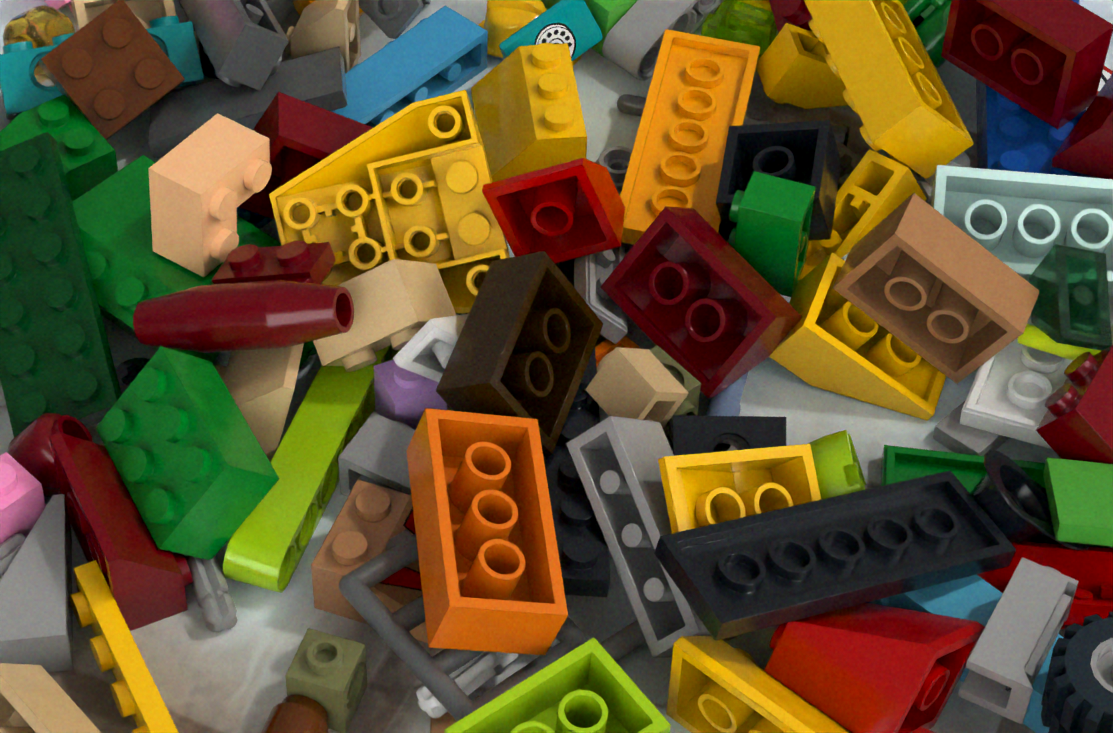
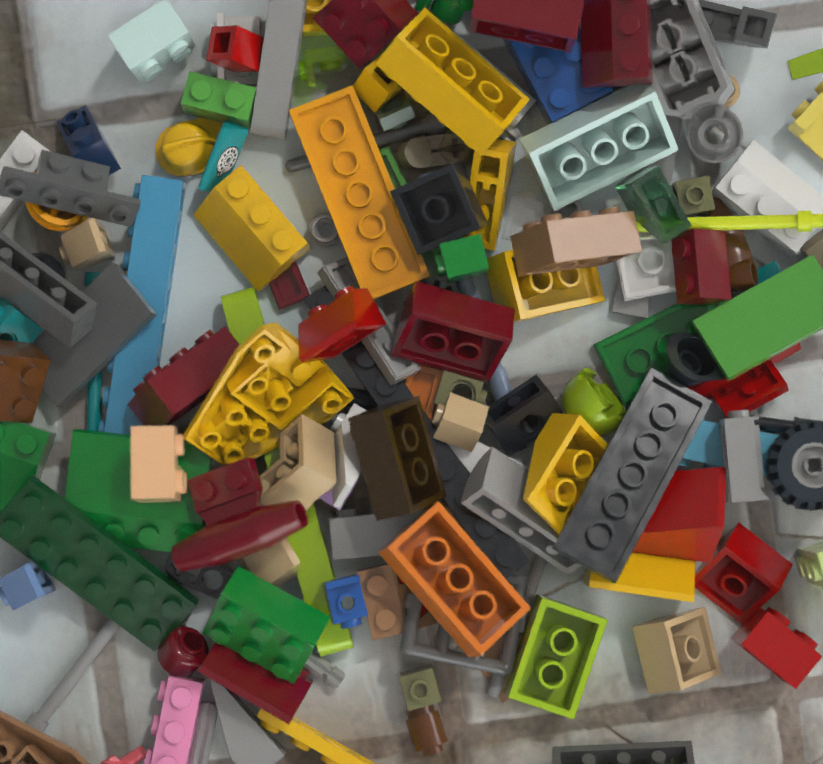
camera: 35 degrees left, 40 degrees up
(315, 491) = (335, 591): none -> blue brick
(789, 106) = (395, 113): none -> sand green plate

